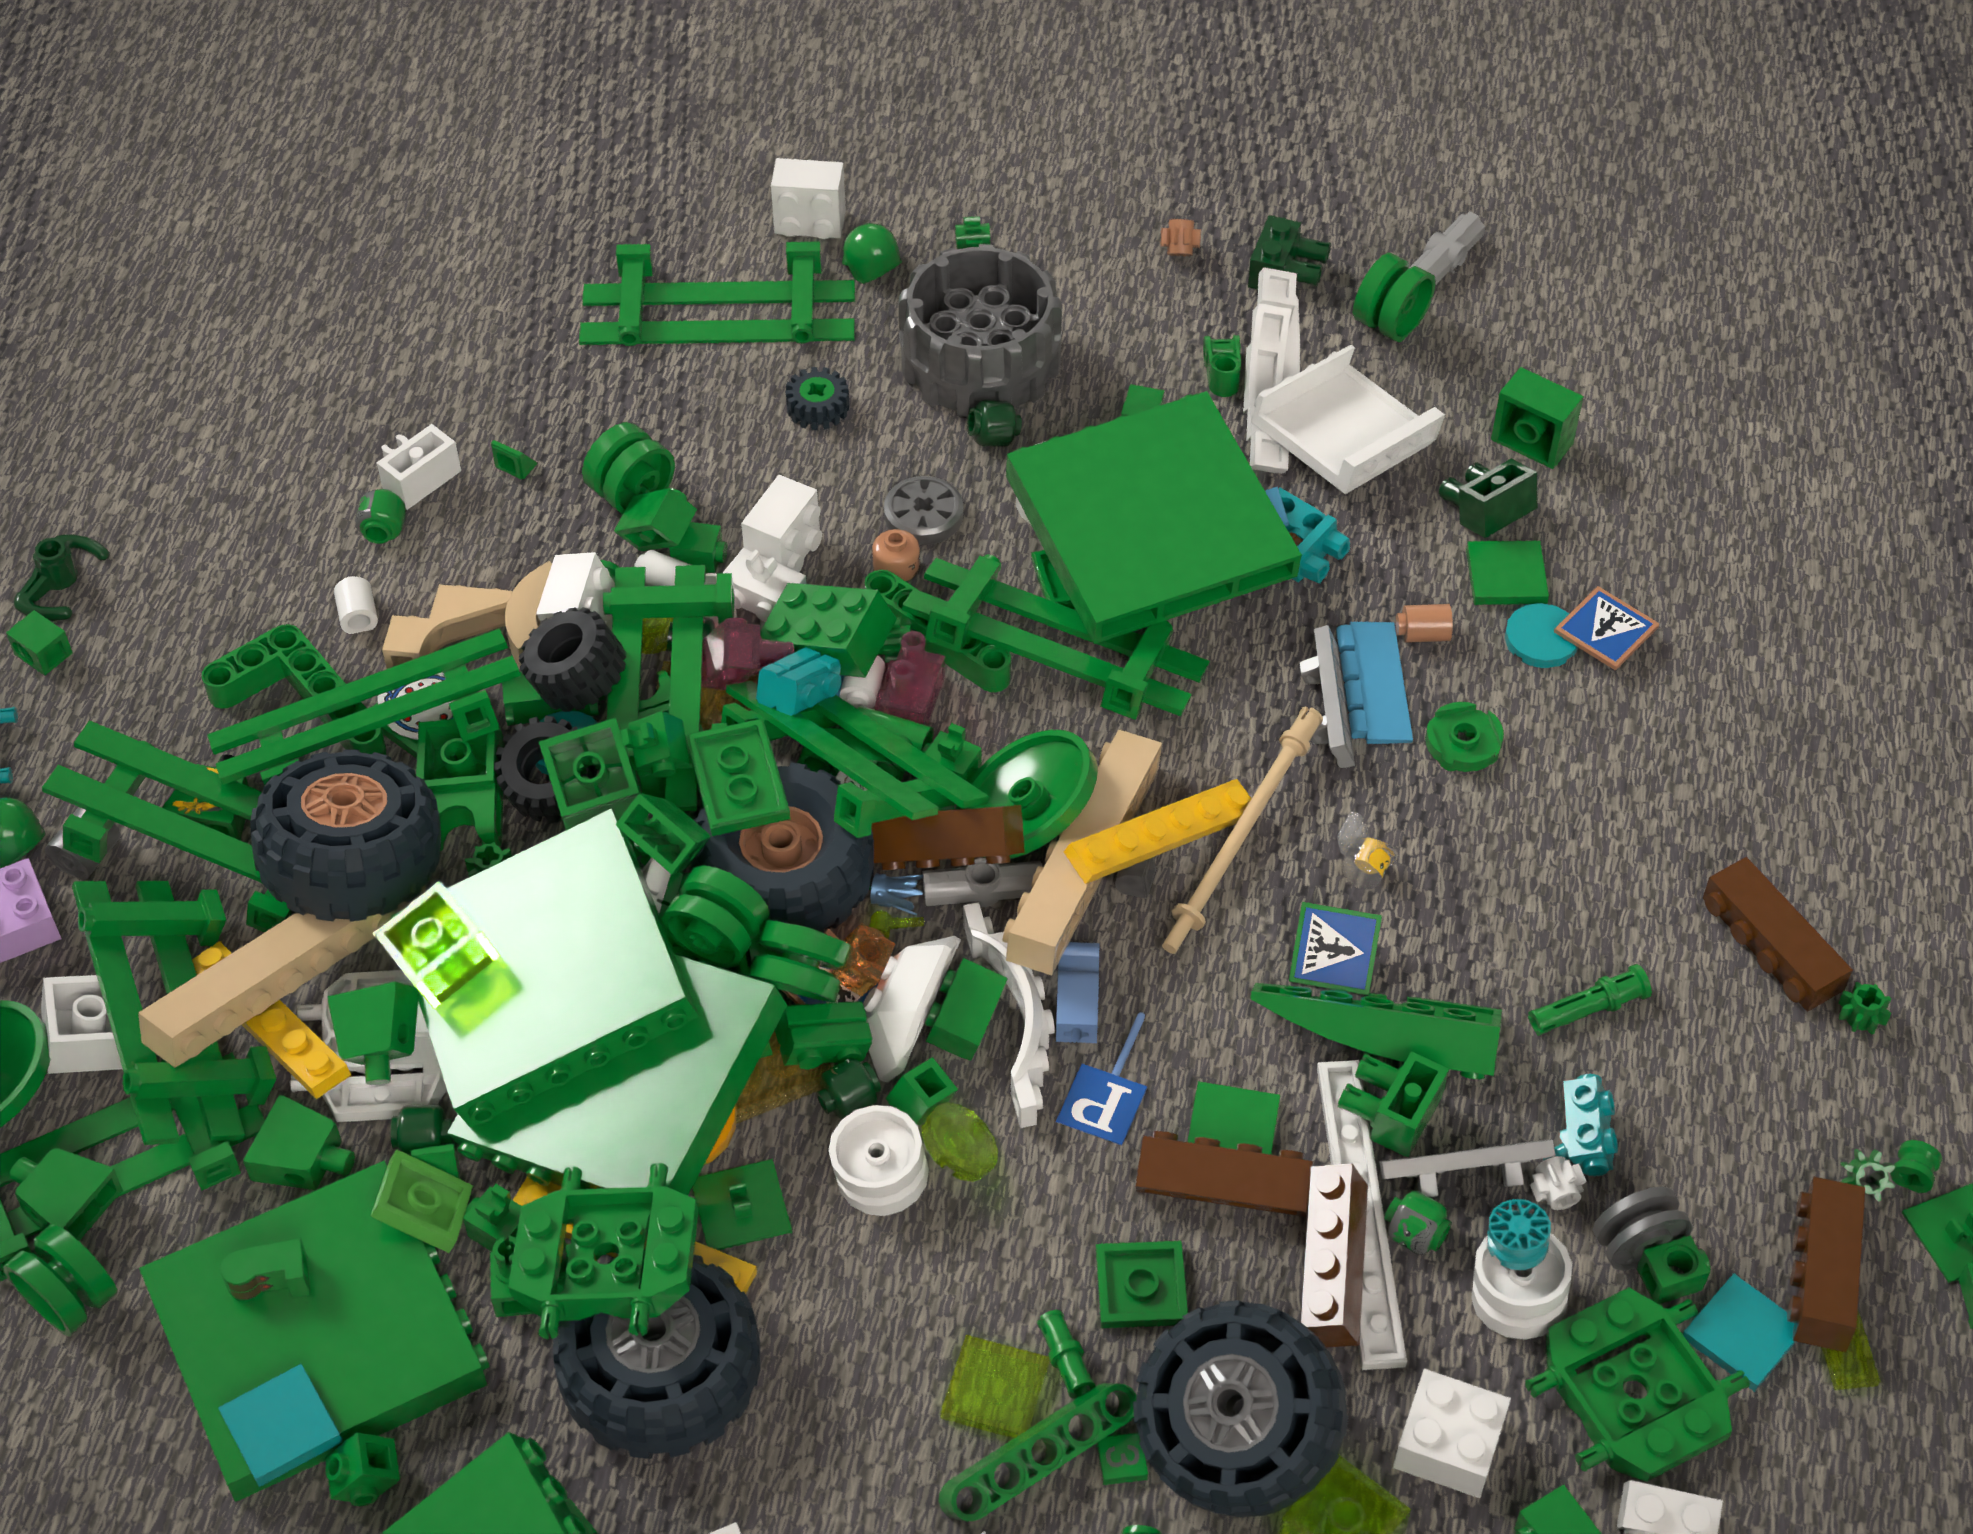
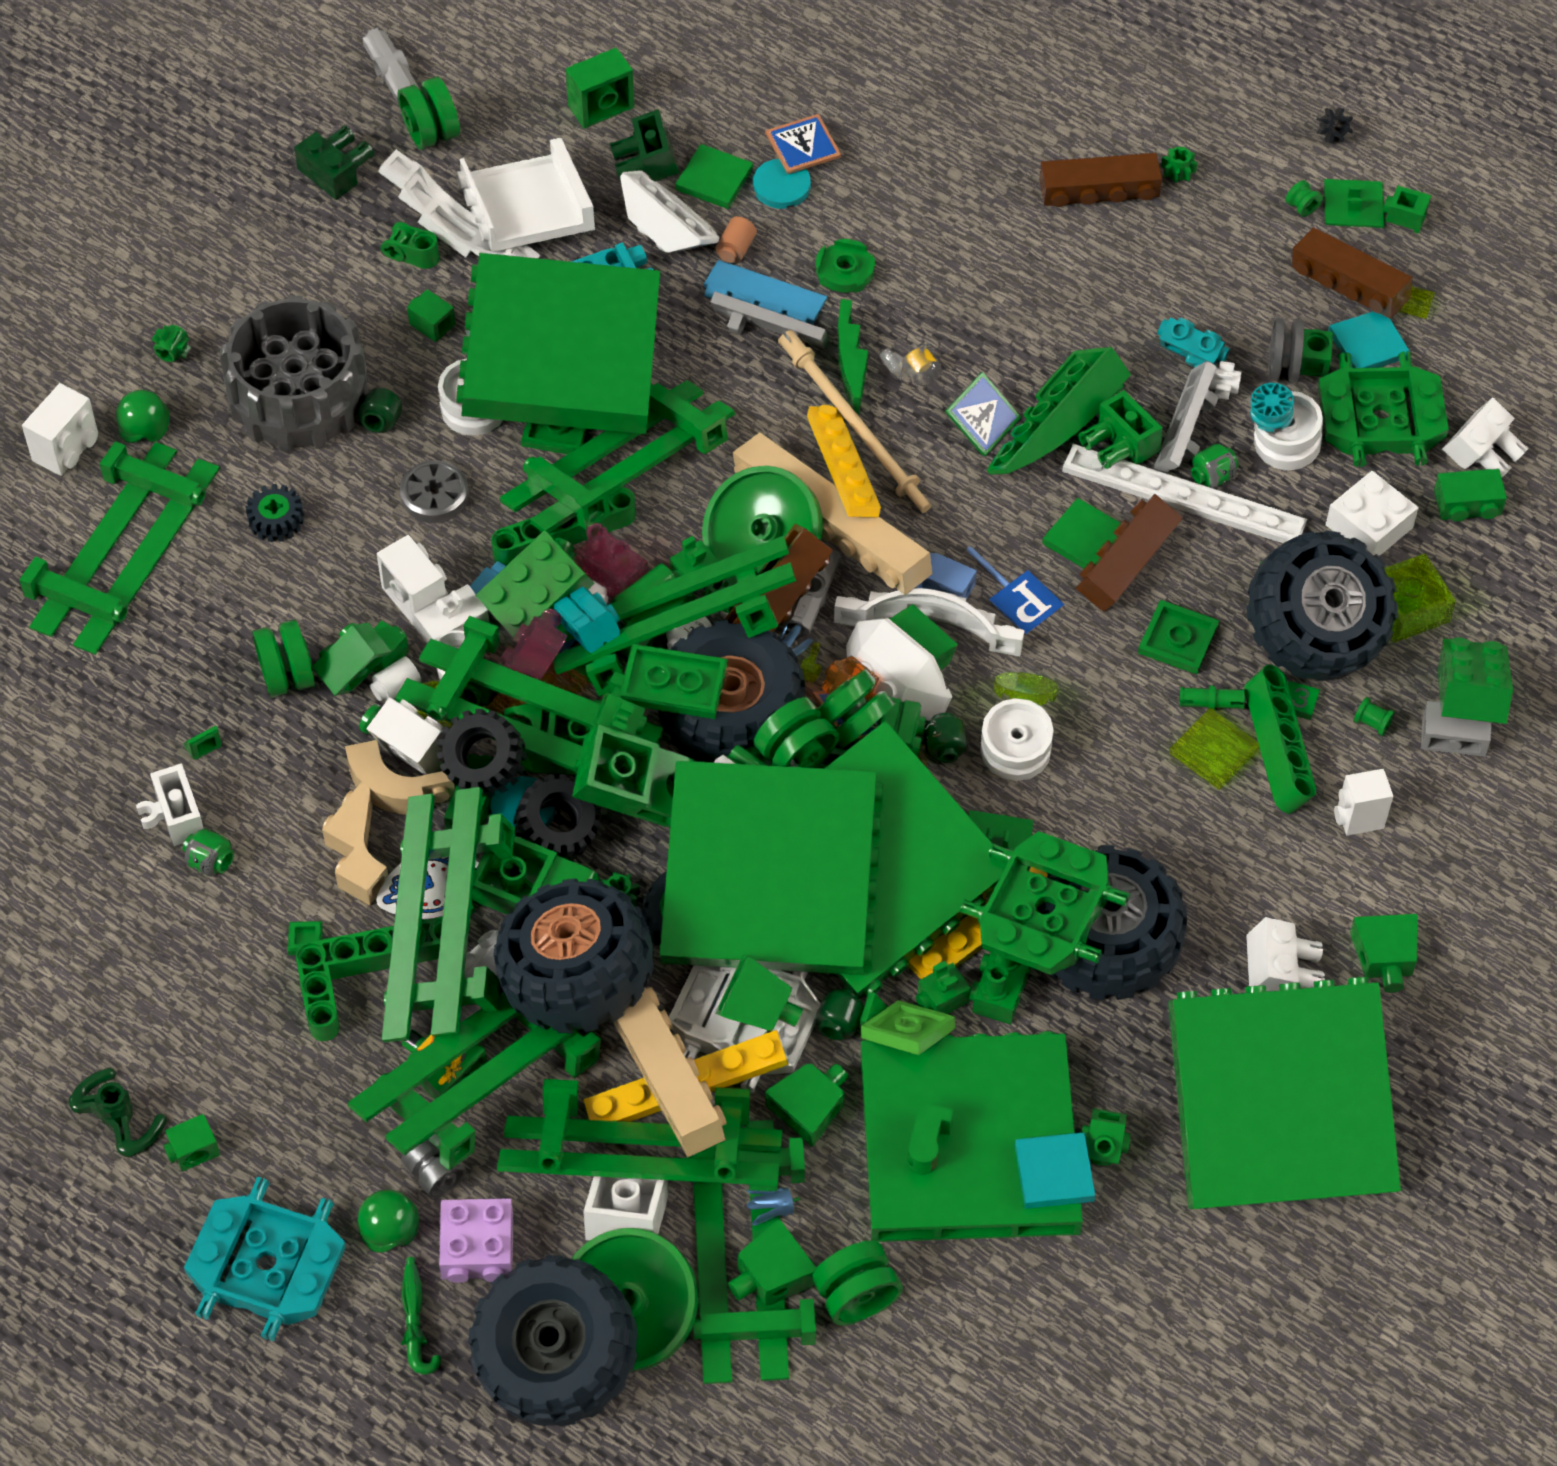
camera: 65 degrees left, 5 degrees up
(153, 1170) = (779, 1200): none -> flat silver piece
(323, 633) = (303, 932): none -> green tile
(355, 605) = (293, 900): white brick -> none
(436, 944) = (730, 918): clear neon green brick -> none
(668, 837) = (710, 739): green torso -> none
(897, 552) = (477, 522): nougat head -> none
(921, 1091) = (975, 693): green brick -> none
(1180, 237) = (266, 214): nougat gear -> none
(1325, 794) = (852, 360): none -> green slope
(1335, 1254) = (1221, 516): brick -> none
(1414, 545) = (663, 215): none -> white wedge
(1606, 994) = (1095, 289): green pin -> none
(1879, 1179) = (1298, 223): green gear -> none

